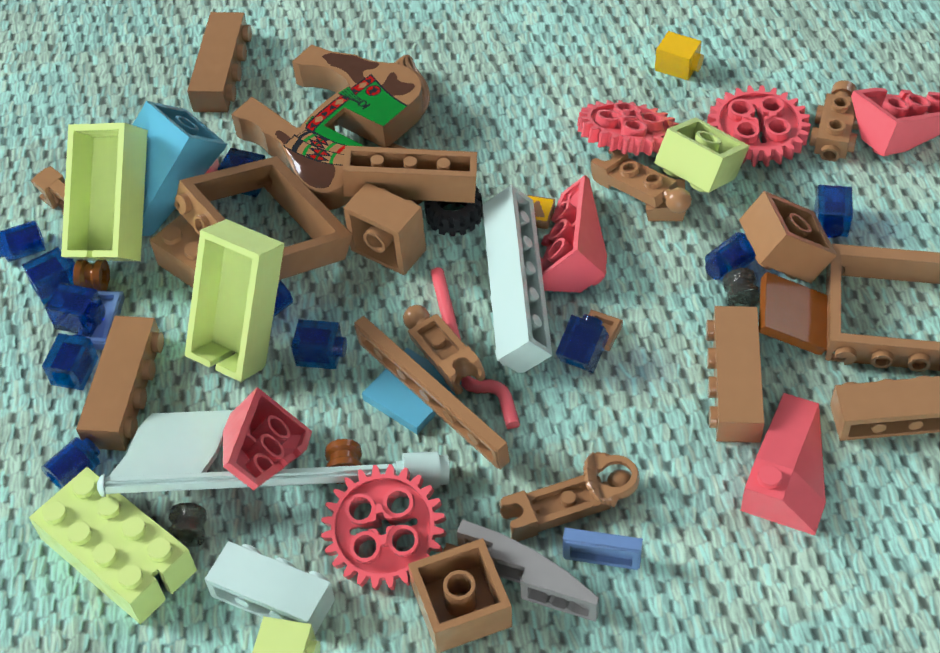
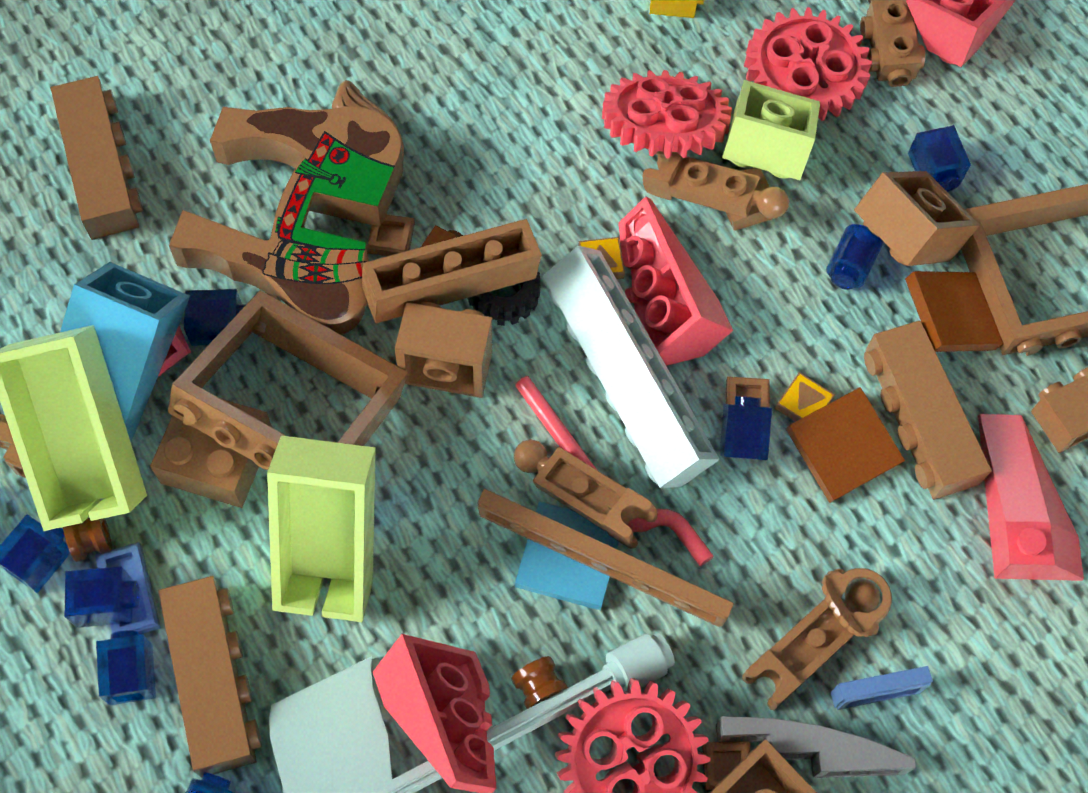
camera: 30 degrees left, 15 degrees up
(318, 344) = (433, 535): clear blue brick -> none
(644, 344) = (803, 398): none -> tile
(660, 379) = (845, 444): none -> dark orange tile
(741, 288) = (884, 295): clear smoke wheel -> none

